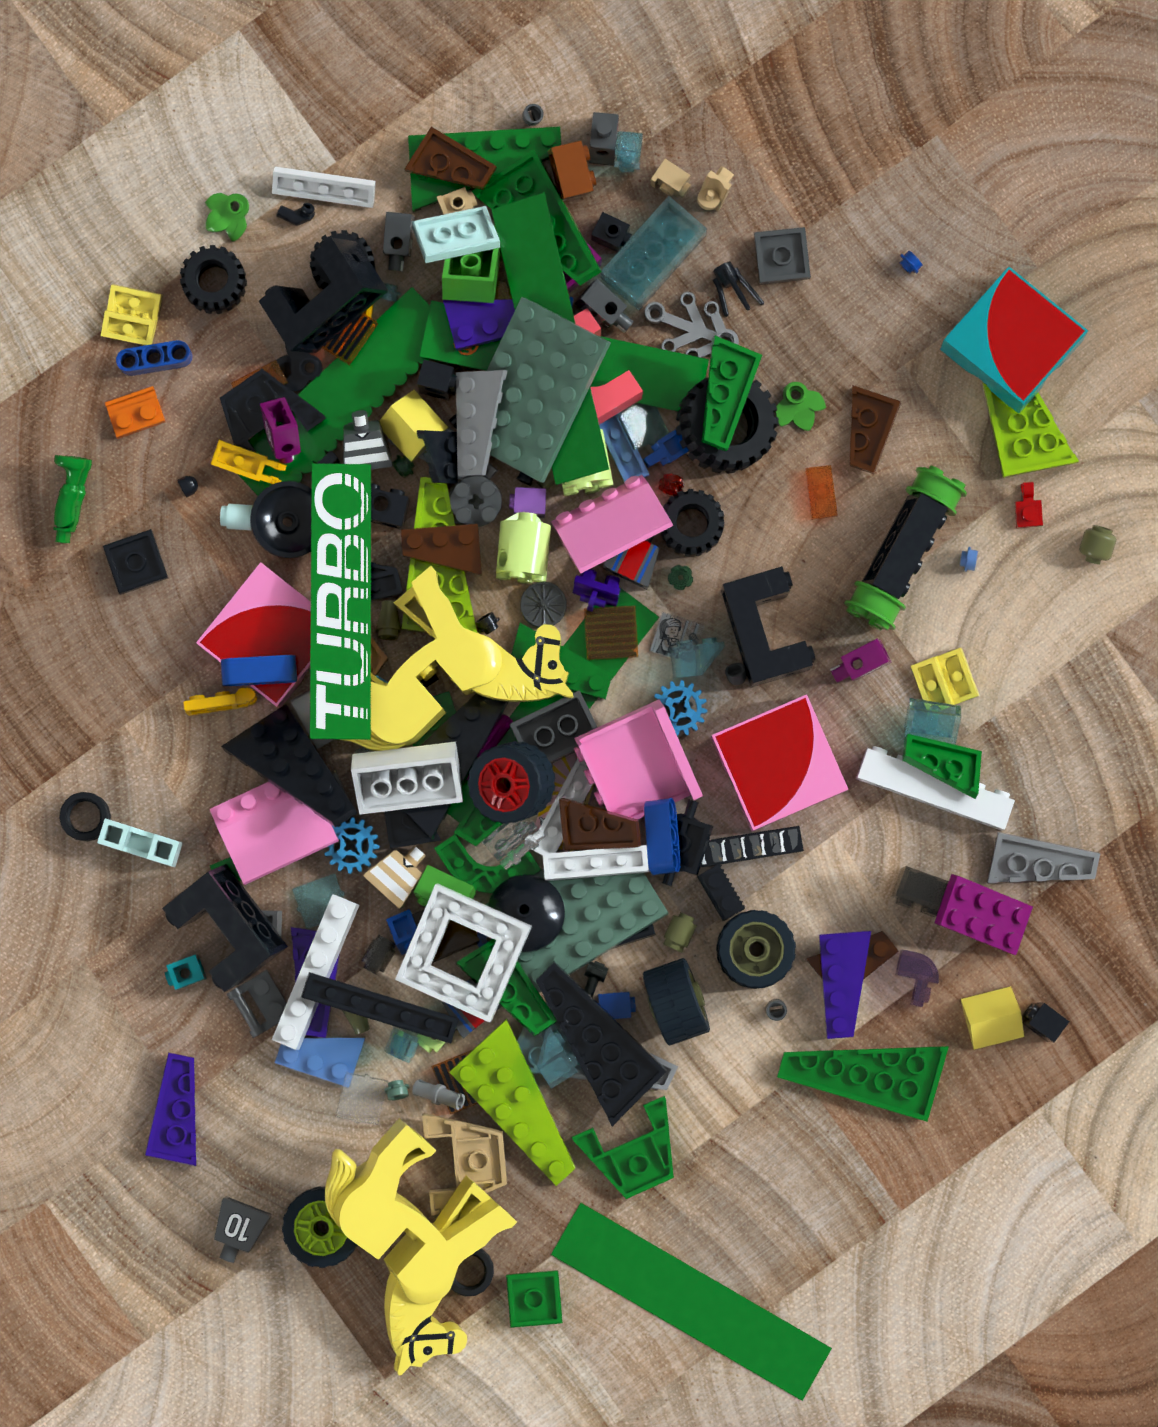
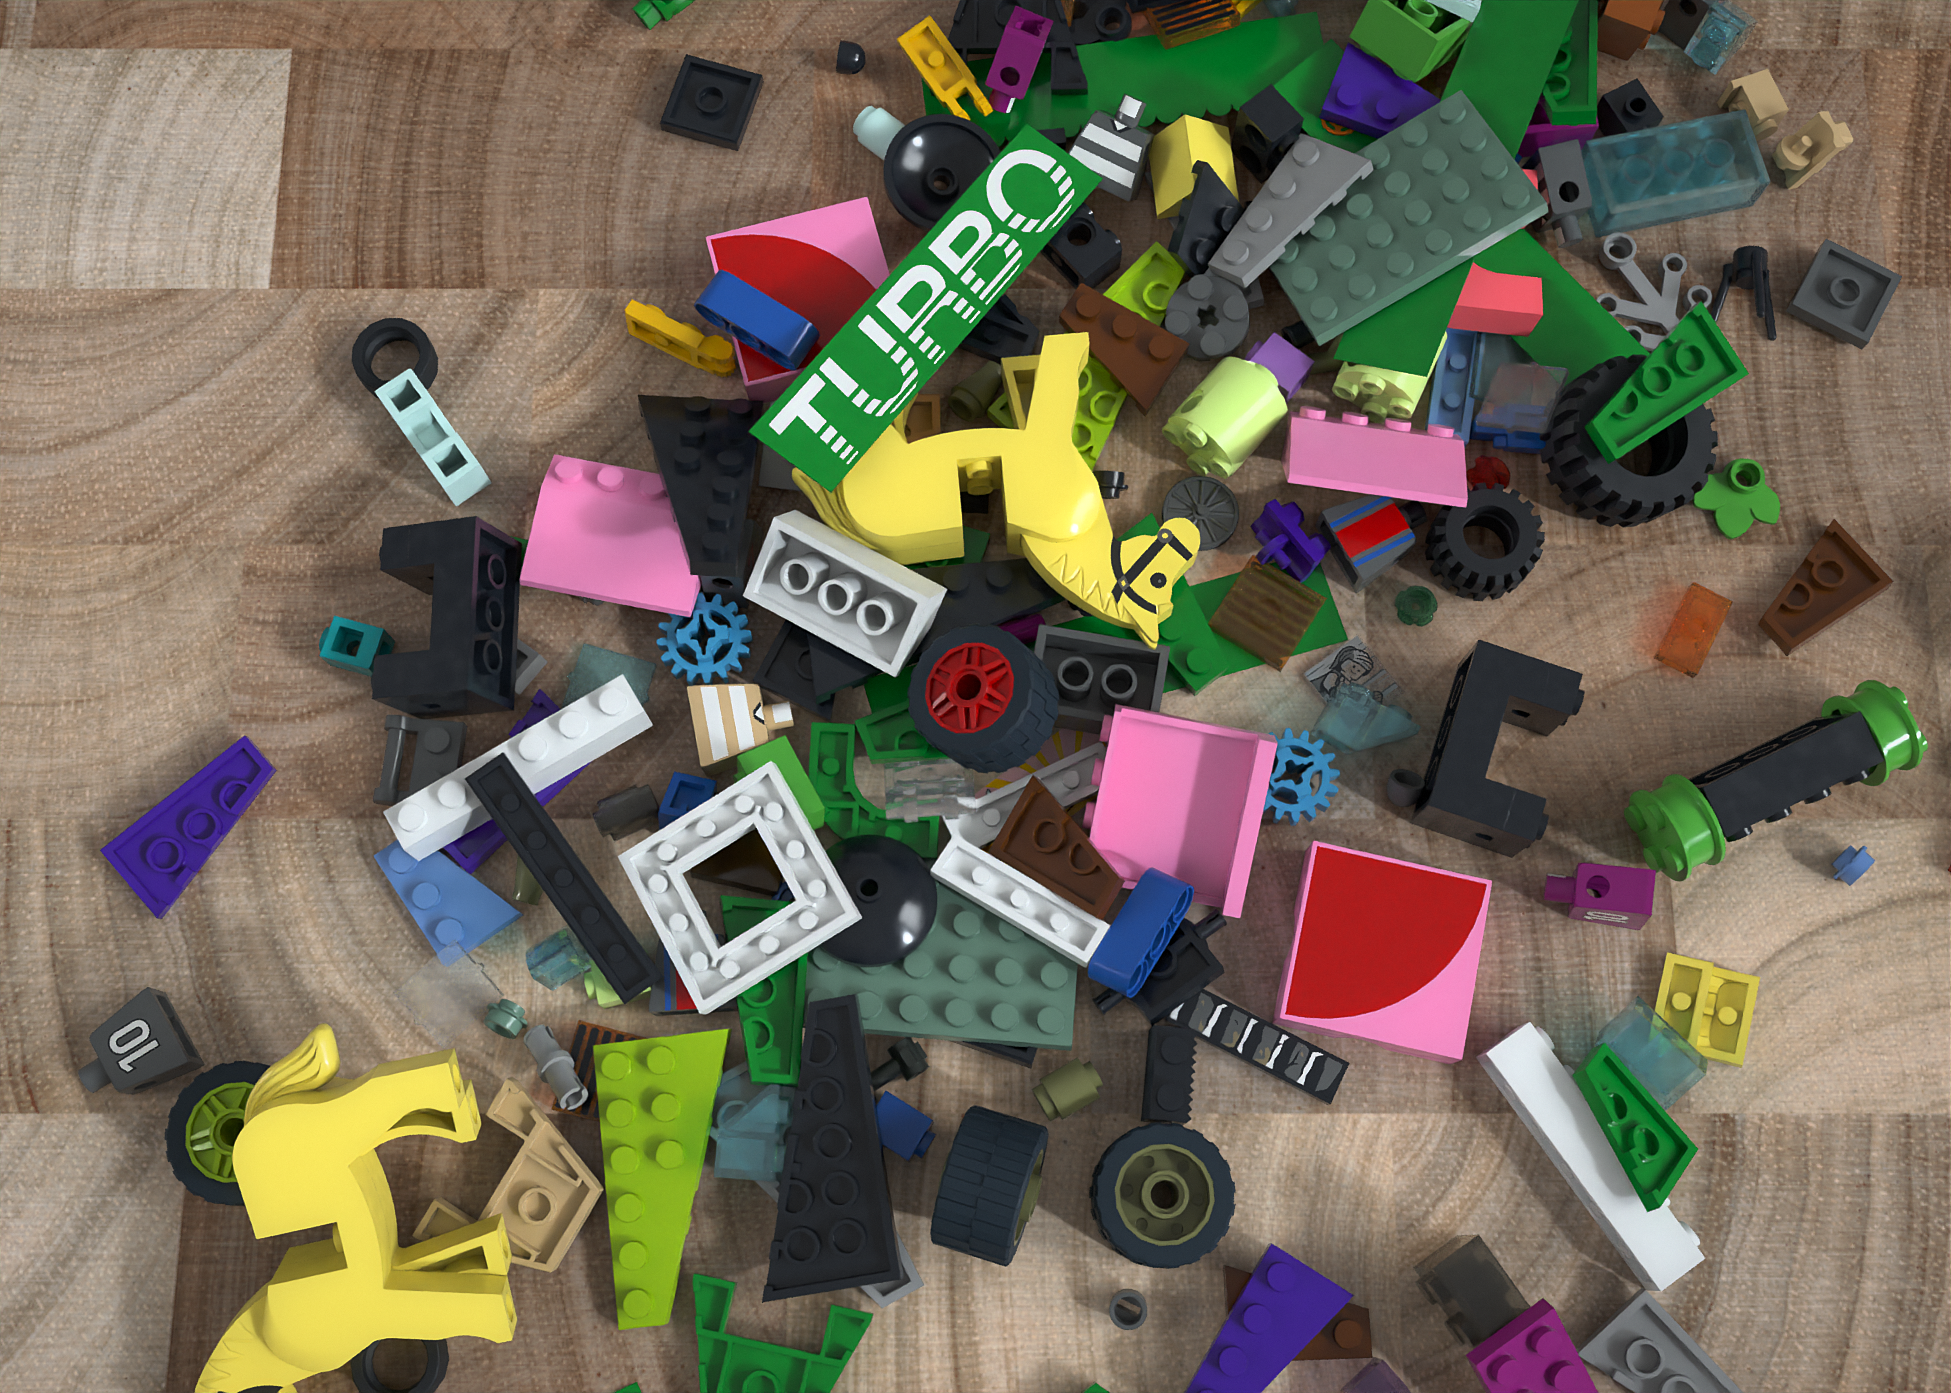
camera: 35 degrees right, 10 degrees down
(403, 466) = (1143, 216): clear green plate -> none
(660, 435) = (1522, 397): none -> clear piece

